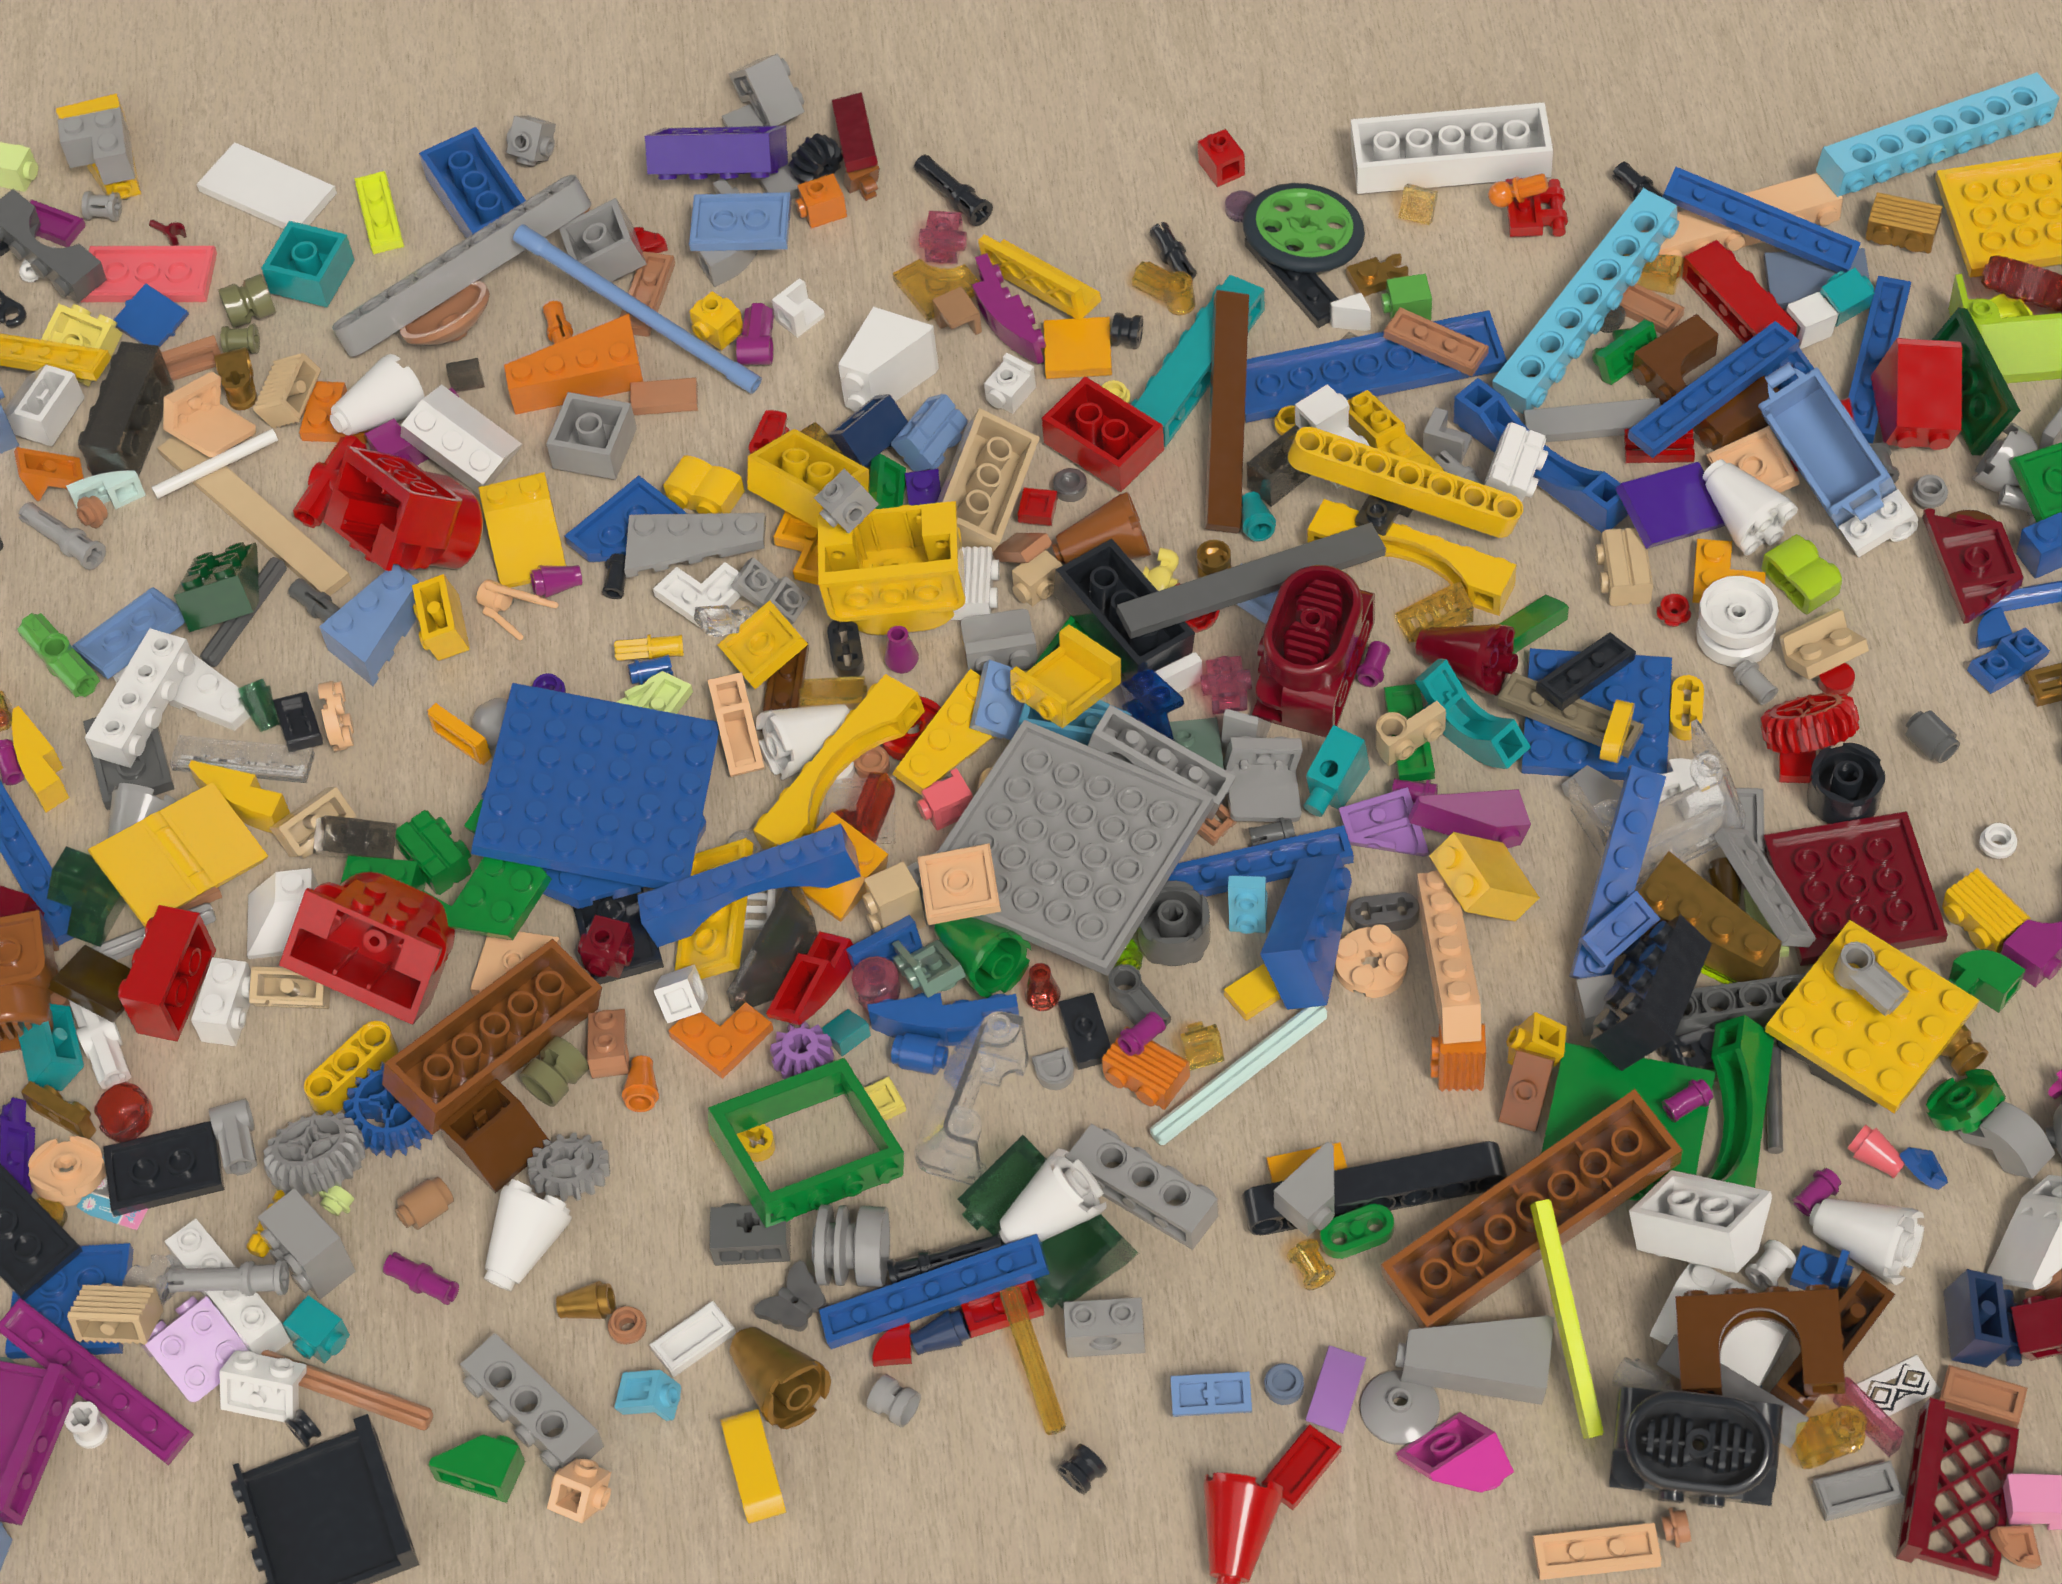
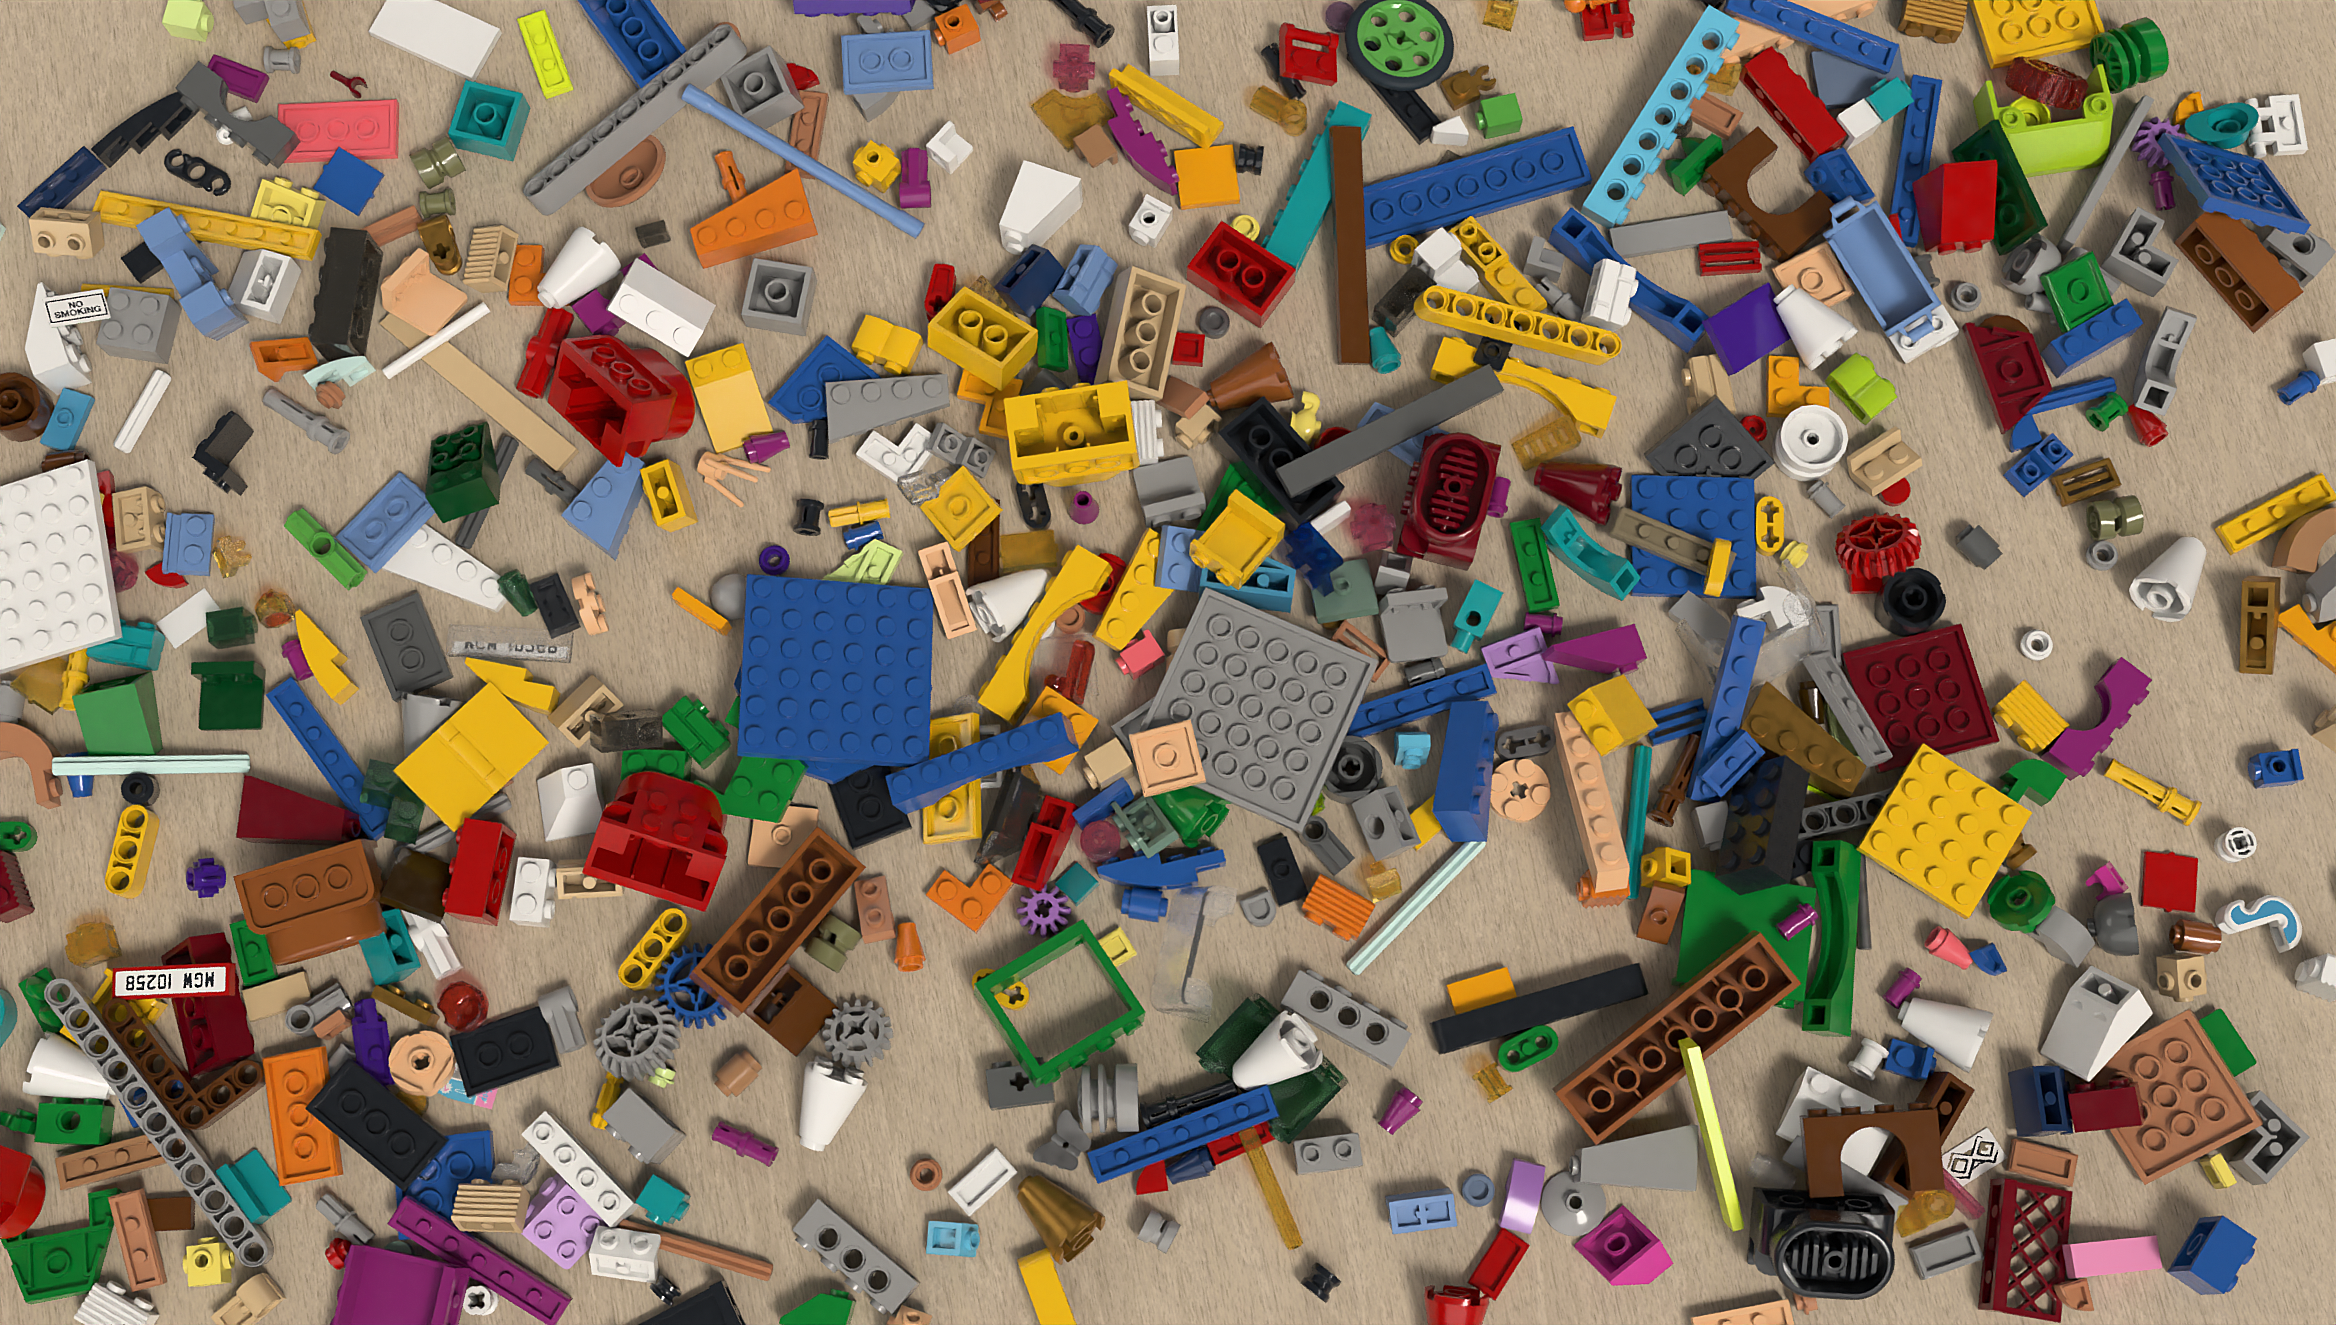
camera: 10 degrees left, 20 degrees up
(140, 698) = (410, 596): white brick -> none
(246, 1278) = (600, 1172): light grey pin -> none
(588, 1302) = (890, 1157): pearl gold cone -> none
(592, 649) = (808, 517): none -> black bush
(607, 947) = (864, 815): dark red brick -> none
(664, 396) = (837, 245): nougat tile -> none
(681, 993) = (933, 864): white brick -> none
(845, 502) = (1030, 392): light grey brick -> none
(1041, 988) = (1241, 845): clear red cone -> none
(1043, 217) = (1163, 40): none -> white slope
(1134, 1039) = (1335, 885): magenta pin -> none
(1150, 750) = (1328, 621): light grey brick -> none
(1198, 242) = (1307, 63): none -> red plate
(1198, 1287) = (1400, 1109): none -> magenta cone
(1210, 980) = (1386, 823): none -> light grey brick
(1213, 557) = (1352, 396): pearl gold wheel -> none
(1308, 1192) = (1492, 1029): light grey slope -> none
(1409, 733) = (1551, 567): tan plate -> none
(1436, 341) = (1528, 163): nougat tile -> none
(1508, 1000) = (1637, 815): none -> teal axle
(1536, 620) = (1630, 444): green slope -> none
(1554, 969) = (1673, 792): none -> reddish brown pin
(1562, 895) = (1701, 714): none -> blue tile
(1585, 671) = (1684, 503): black tile -> none
(1627, 609) = (1710, 445): none -> black plate
(1701, 1221) = (1818, 1039): white slope -> none
(1713, 389) = (1779, 210): blue plate -> none
(1718, 731) = (1795, 553): none -> light yellow plate
(1870, 979) = (1947, 809): light grey piece -> none

